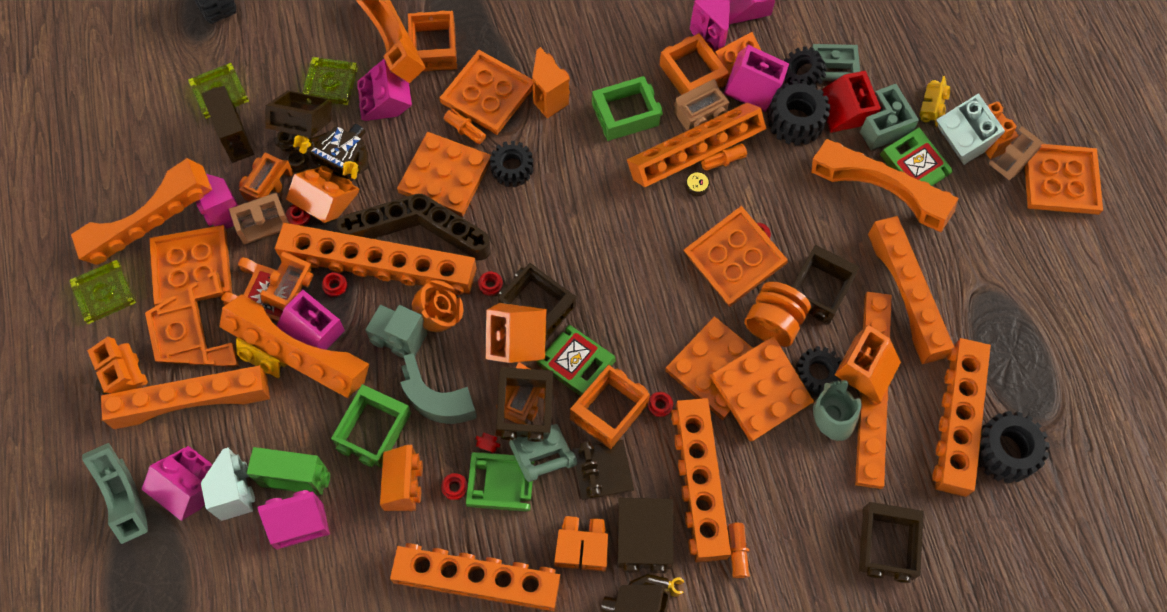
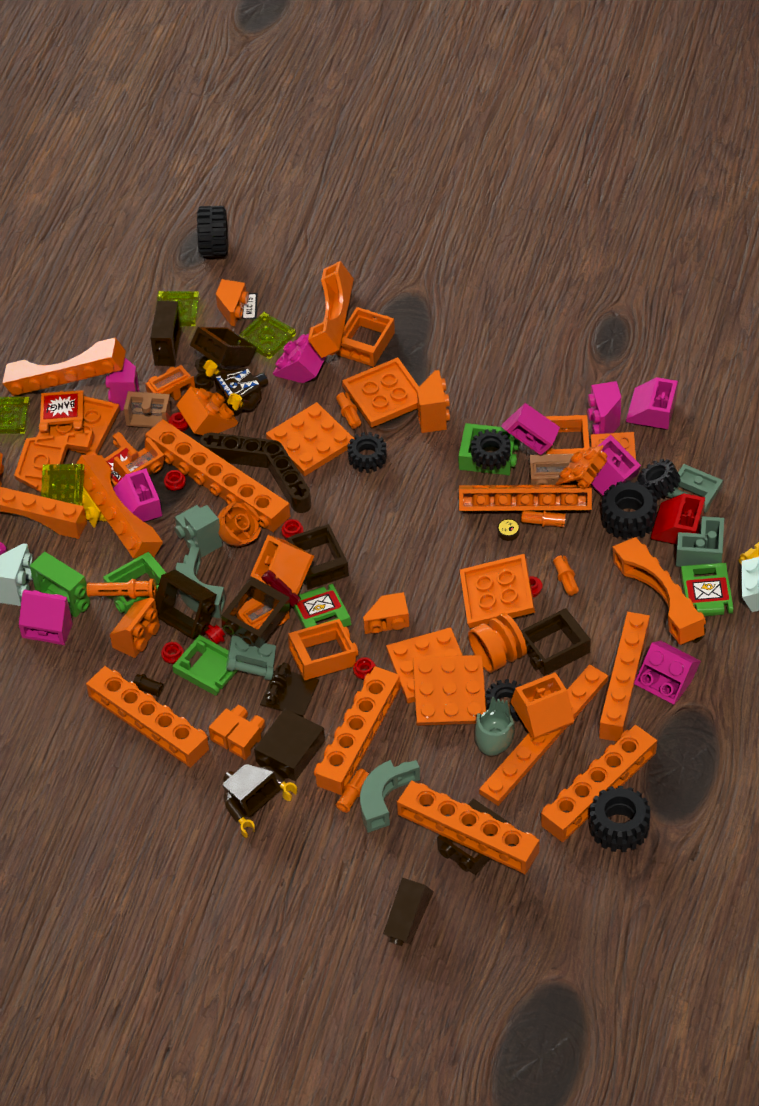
camera: 35 degrees right, 15 degrees down
(165, 259) = (61, 409): none -> flag
(219, 349) = (63, 482): none -> clear neon green tile
(270, 58) = (230, 300): none -> orange slope
(291, 56) = (250, 308): none -> sticker
(374, 440) = (132, 589): none -> orange pin
(434, 443) = (165, 599): none -> dark brown window
(452, 539) = (148, 685): none -> dark brown pin
(528, 359) = (279, 585): none -> dark red axle
(639, 97) = (491, 439): none -> black tyre
(648, 329) = (387, 614): none -> orange slope
(670, 71) = (532, 428): none -> dark pink slope
(739, 89) = (584, 467): none -> orange hinge
(762, 542) = (378, 786): none -> sand green arch
(783, 207) = (566, 575): none -> orange axle
(944, 263) = (666, 671): none -> dark pink slope
(966, 535) = (474, 837): none -> orange brick

